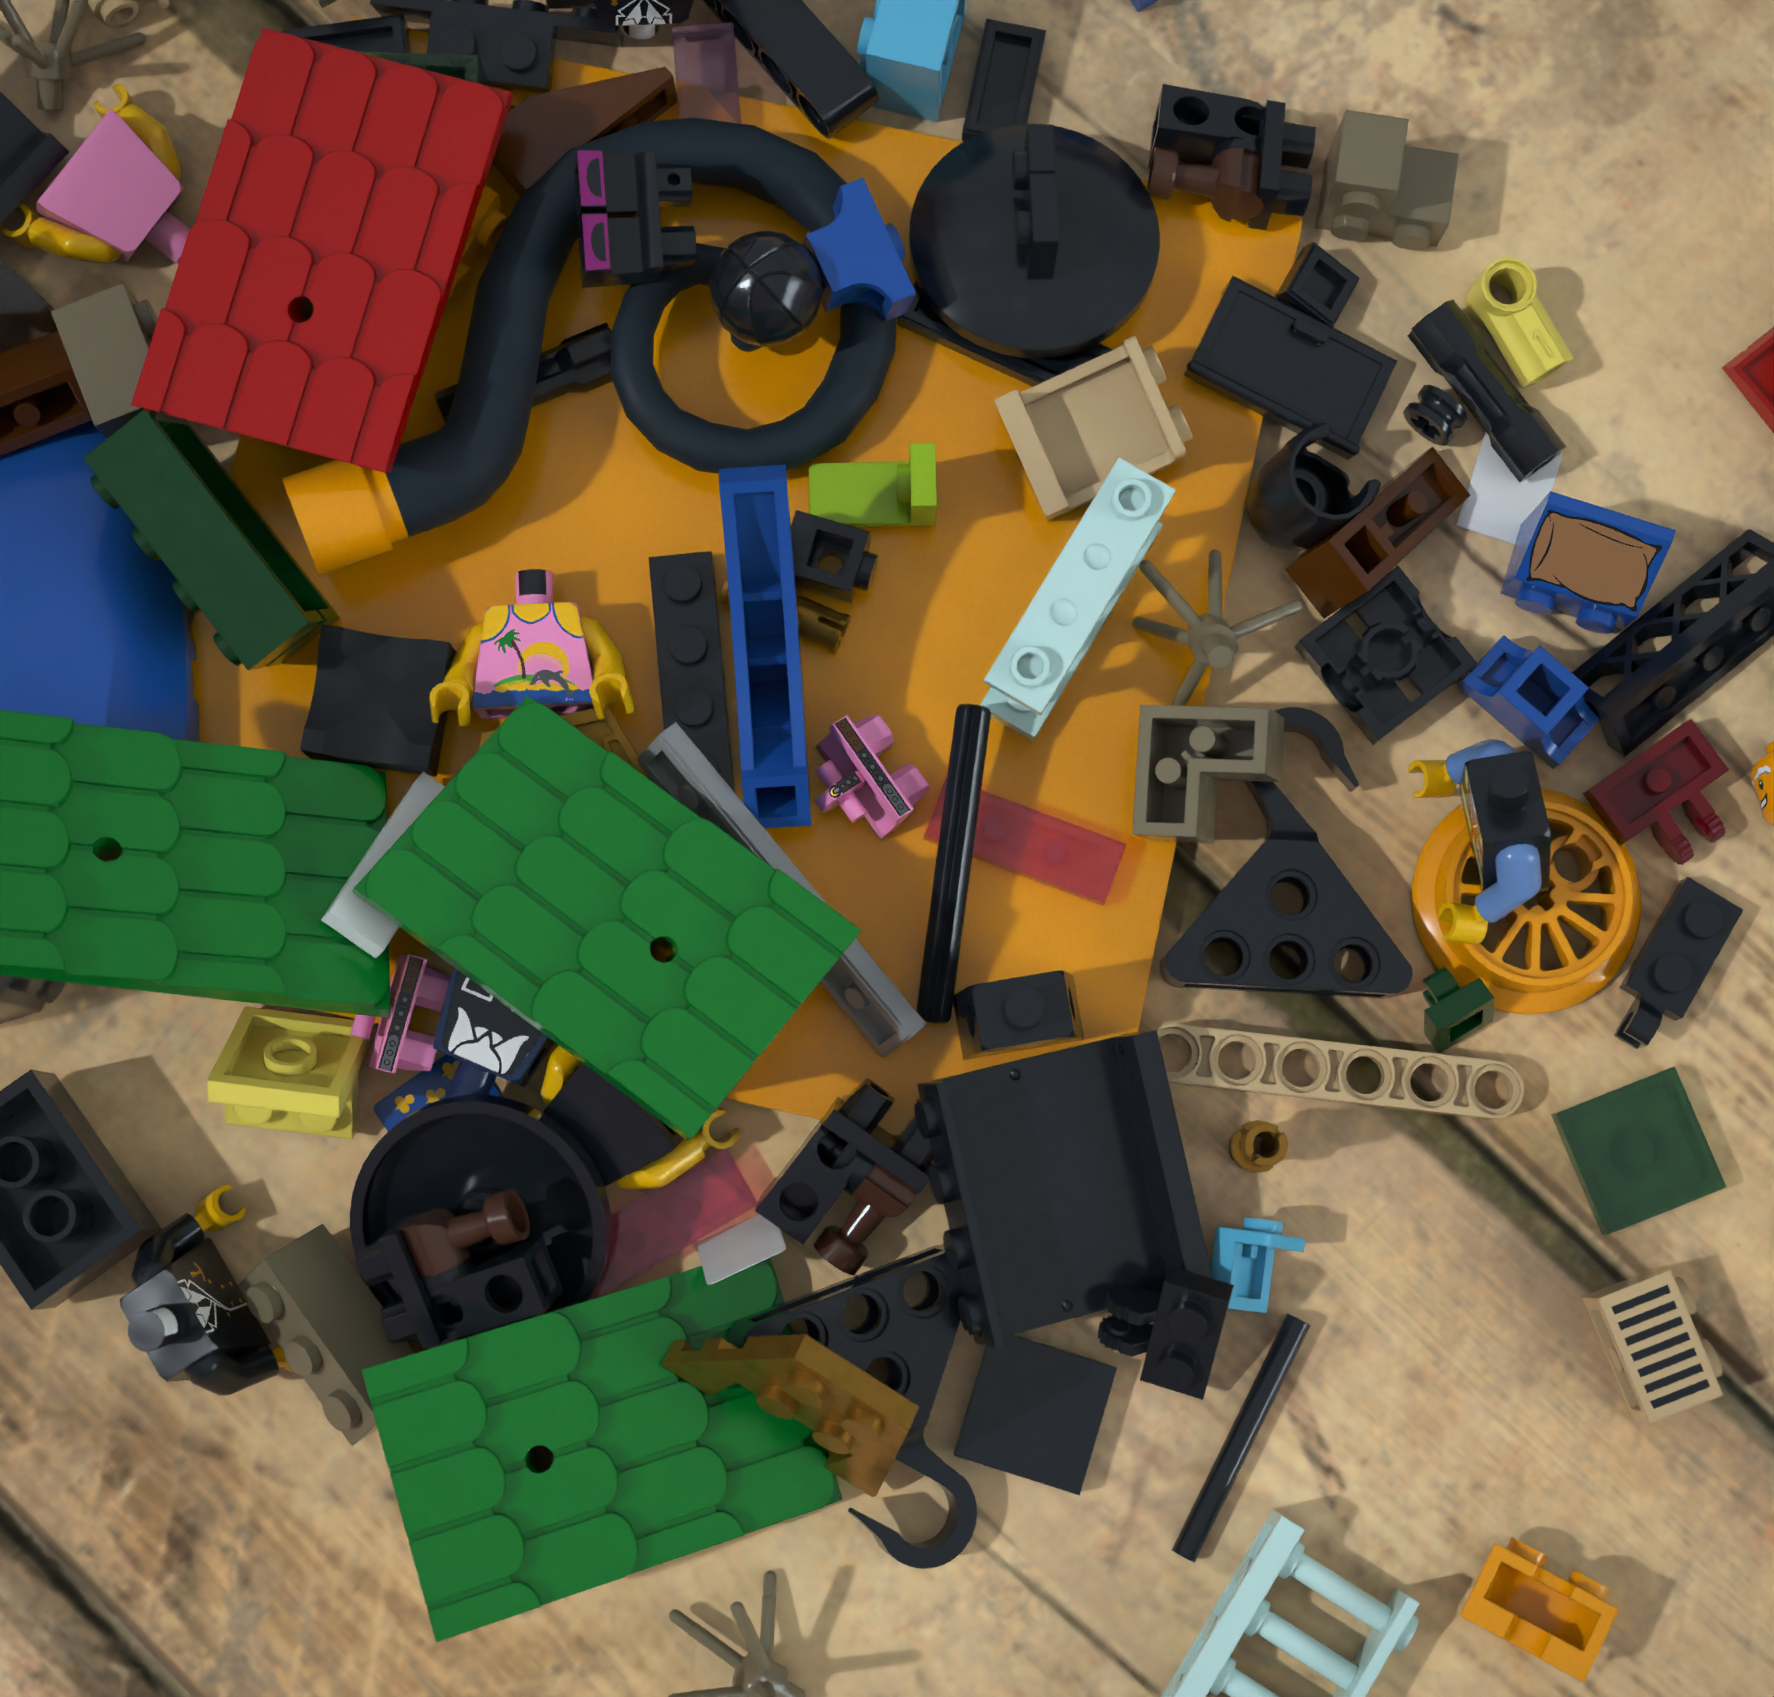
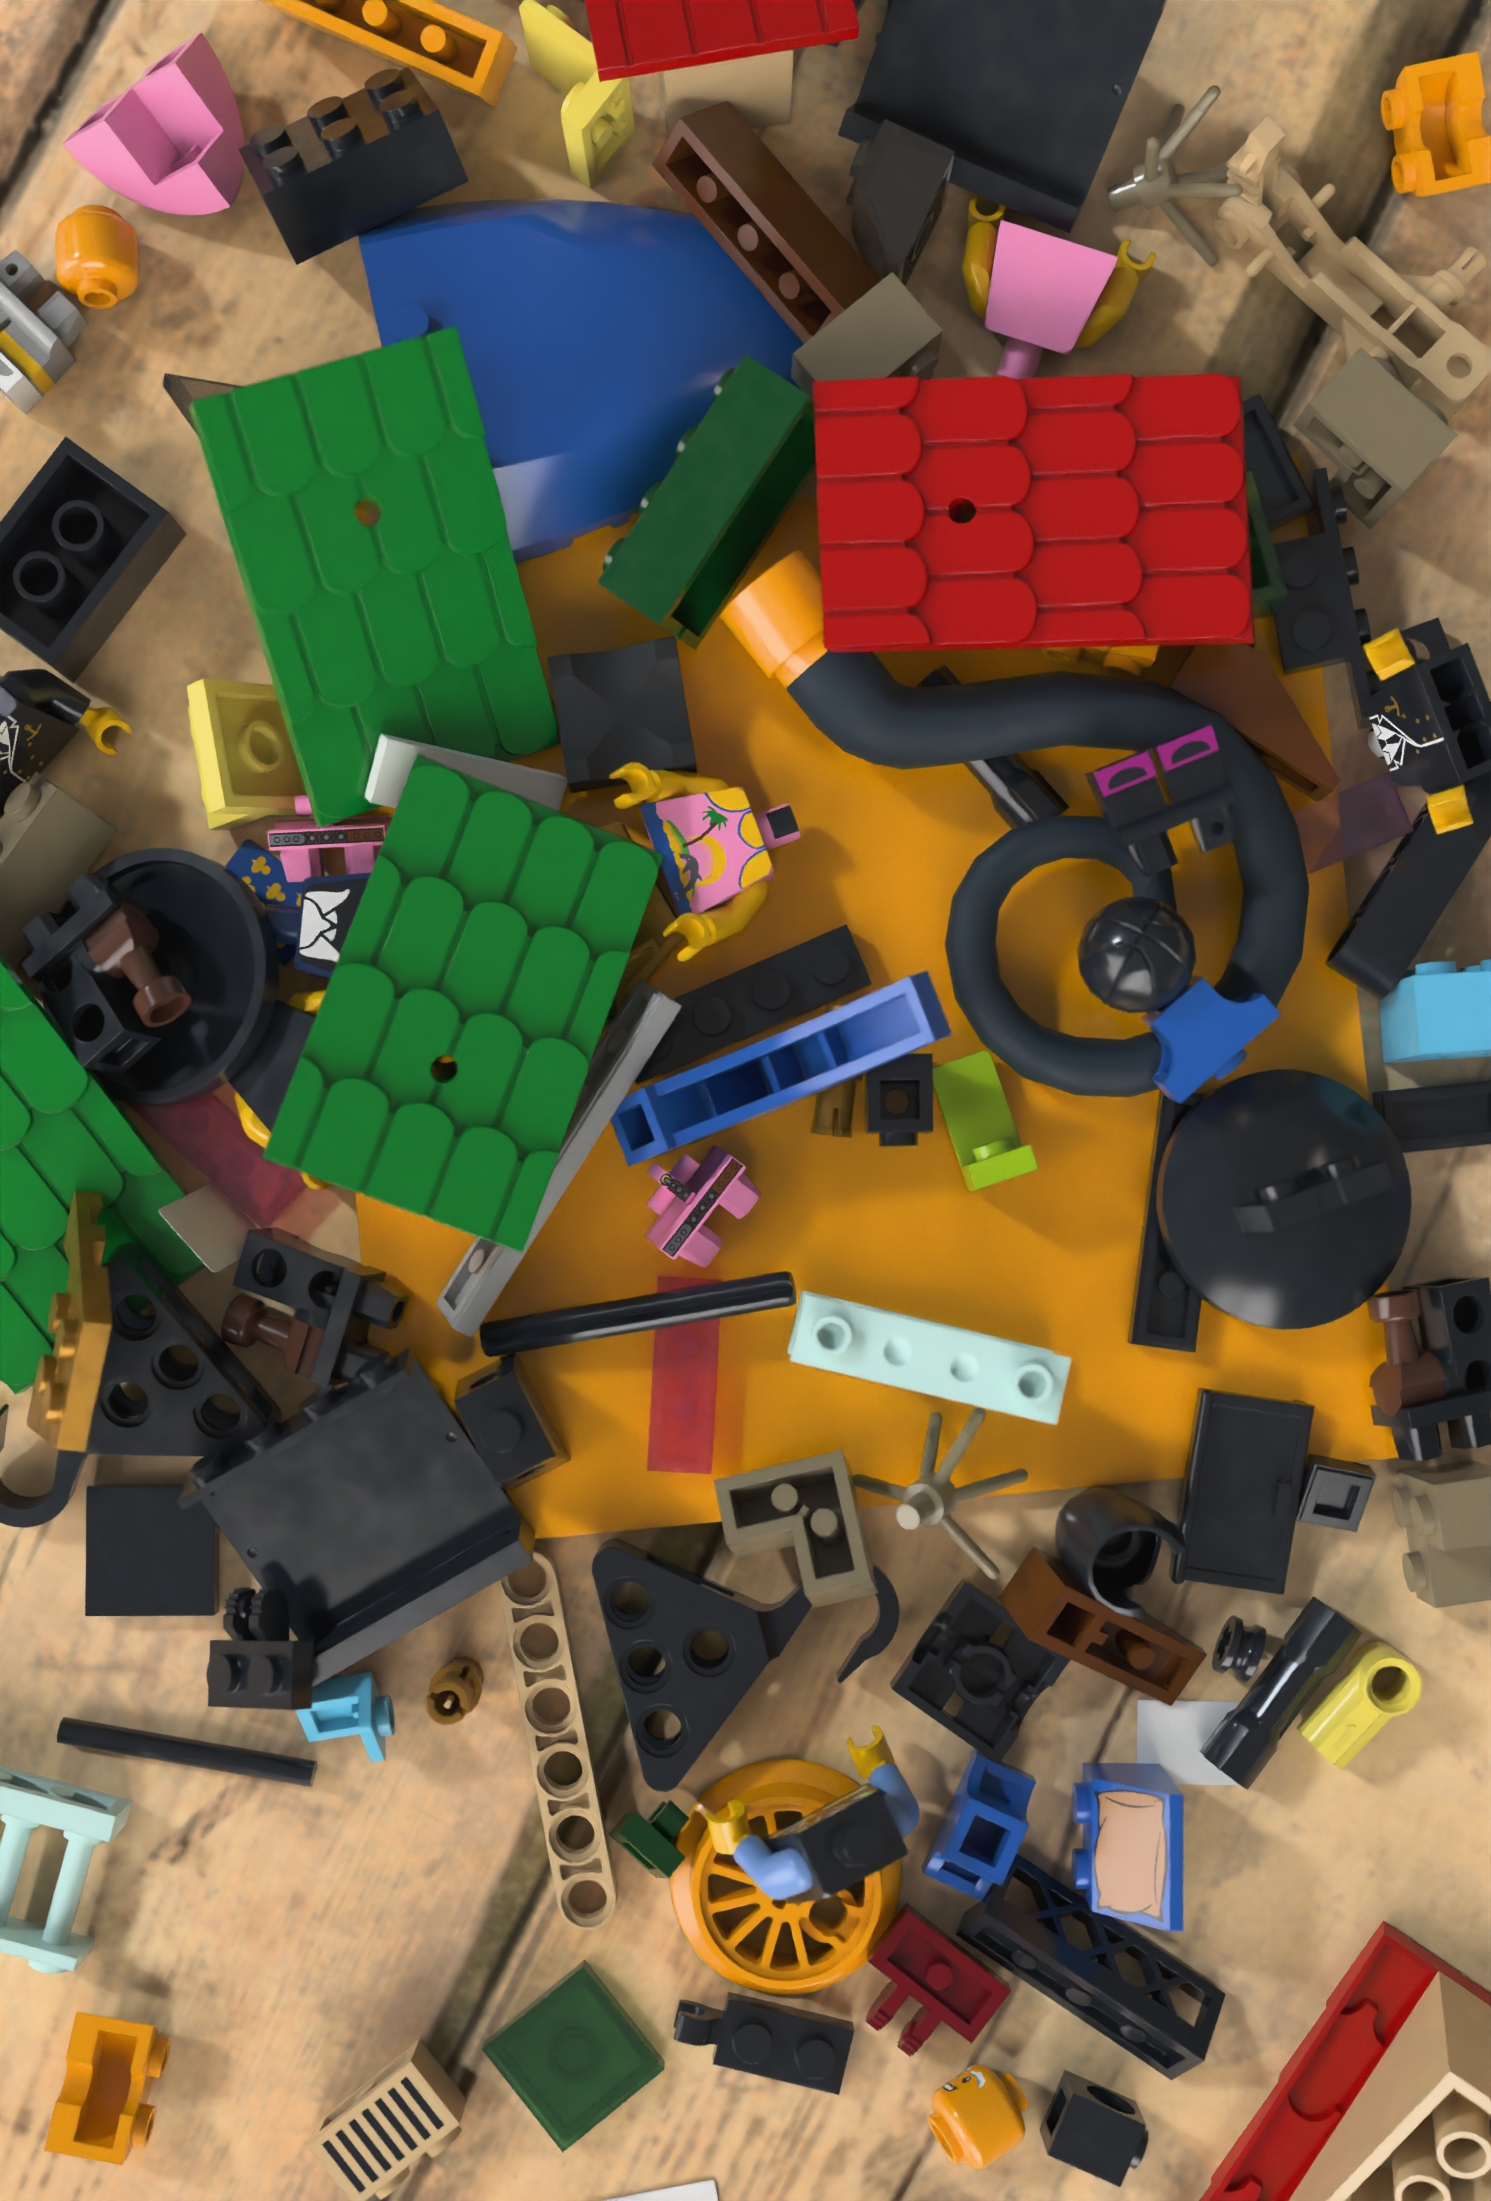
camera: 70 degrees right, 5 degrees up
(1088, 418) = (1111, 1317): tan panel -> none

